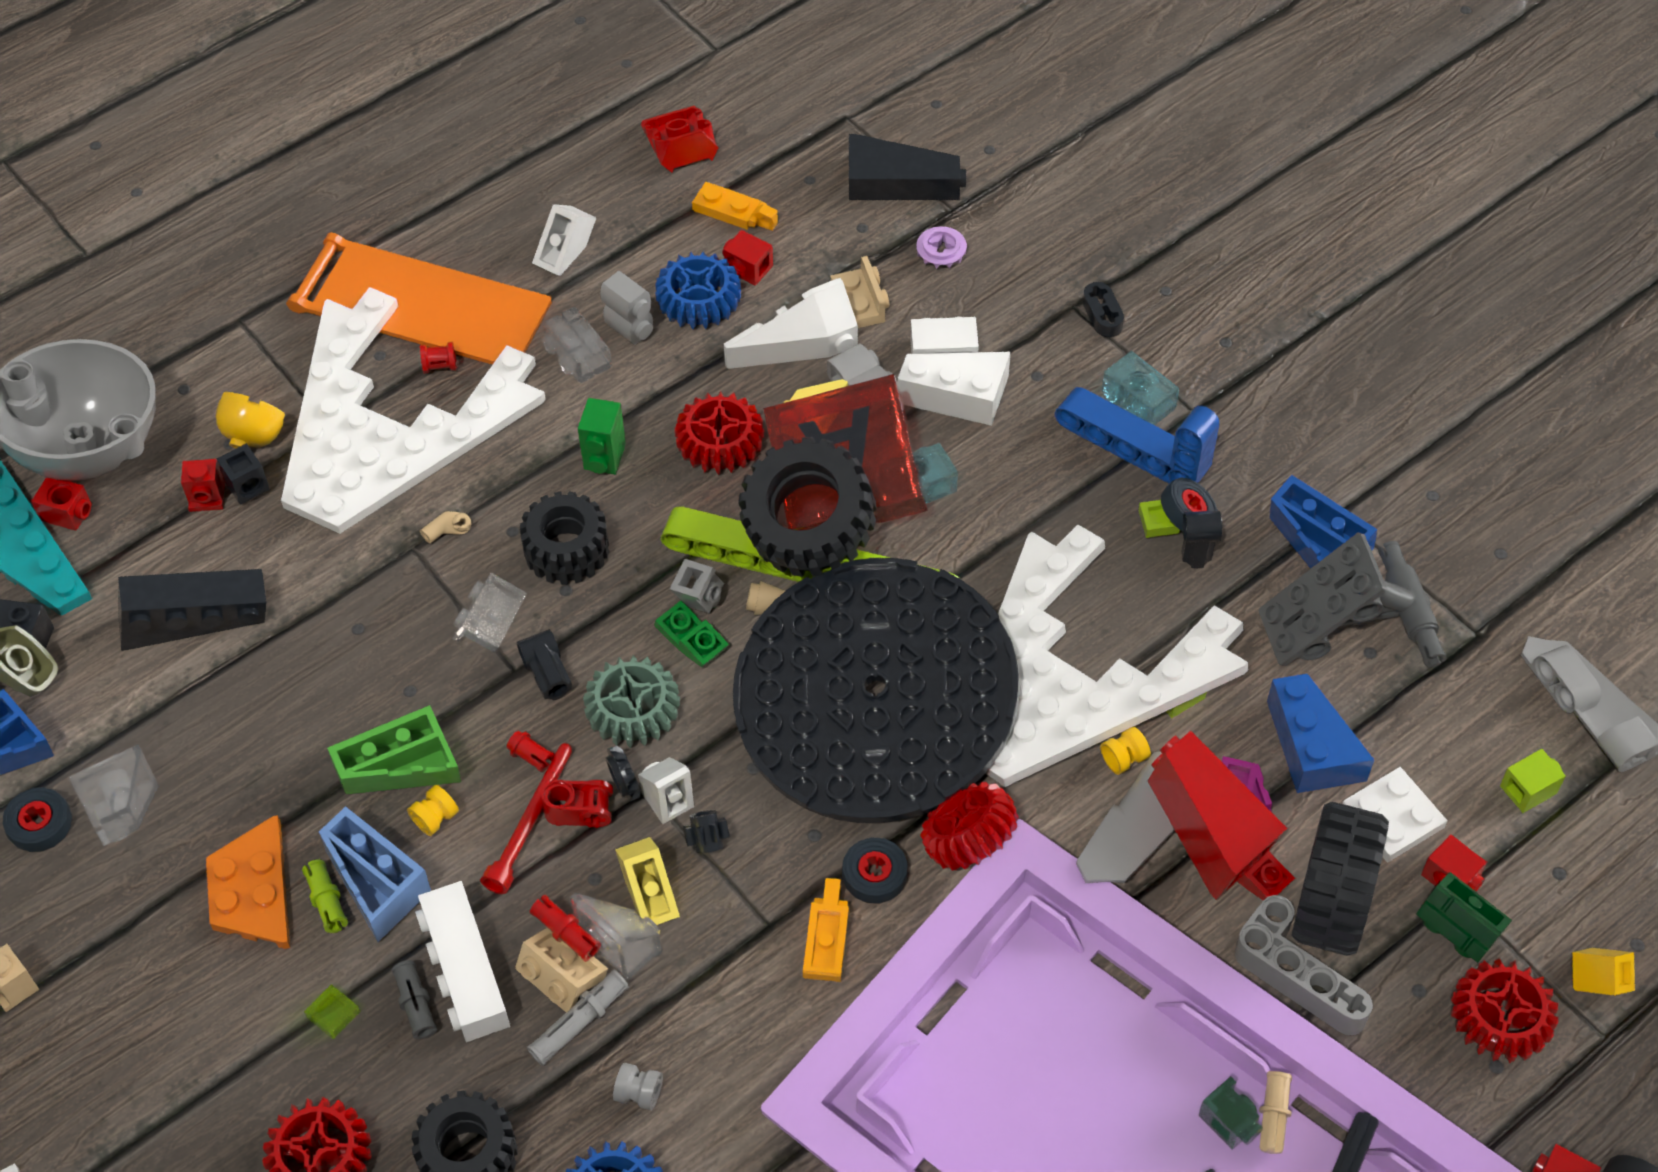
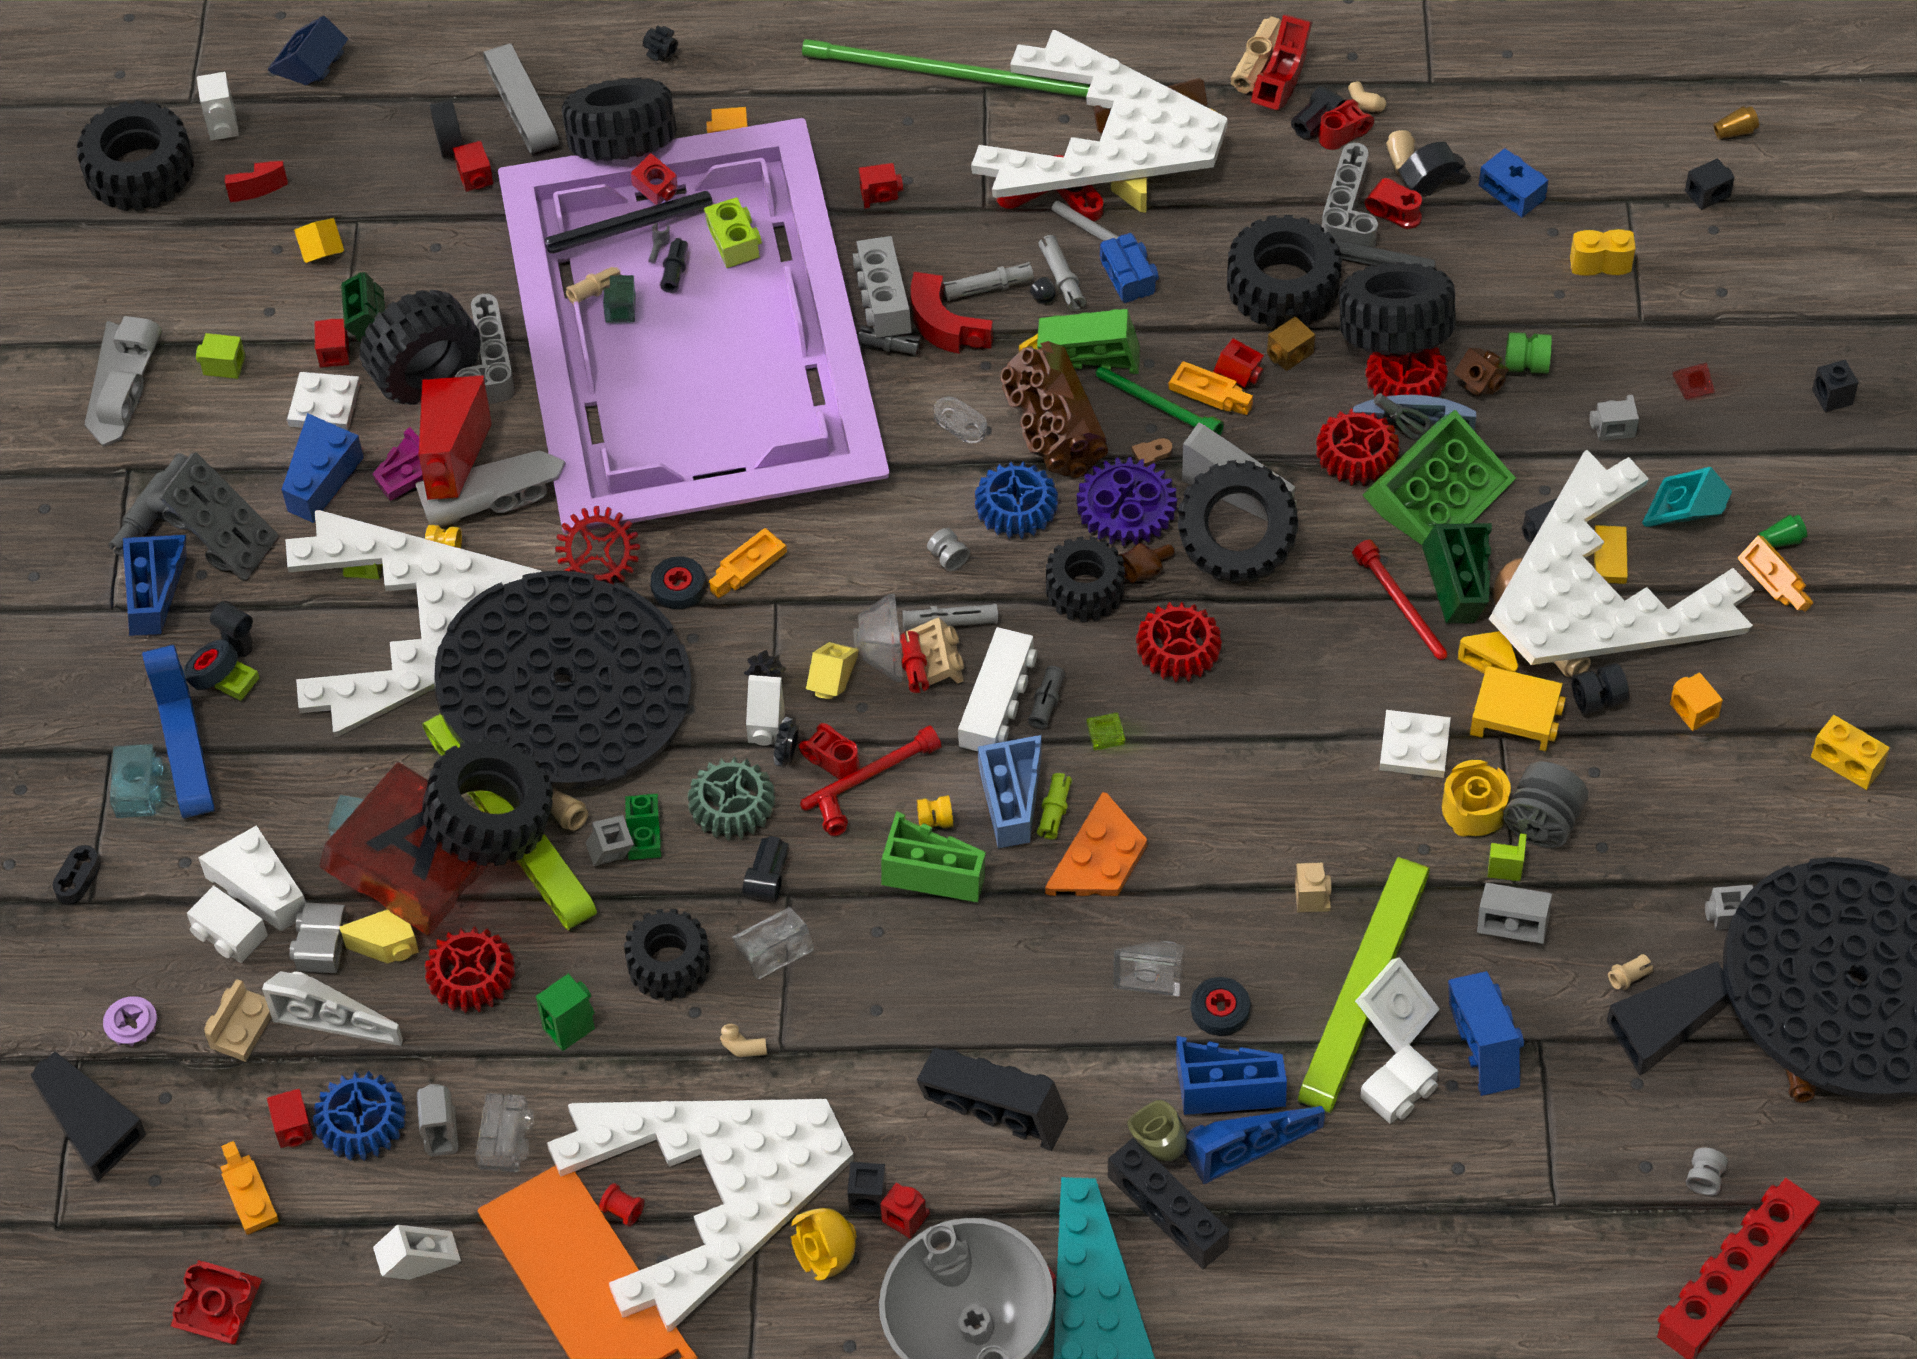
camera: 140 degrees left, 0 degrees up
(1526, 1006) = (401, 257): red gear -> none

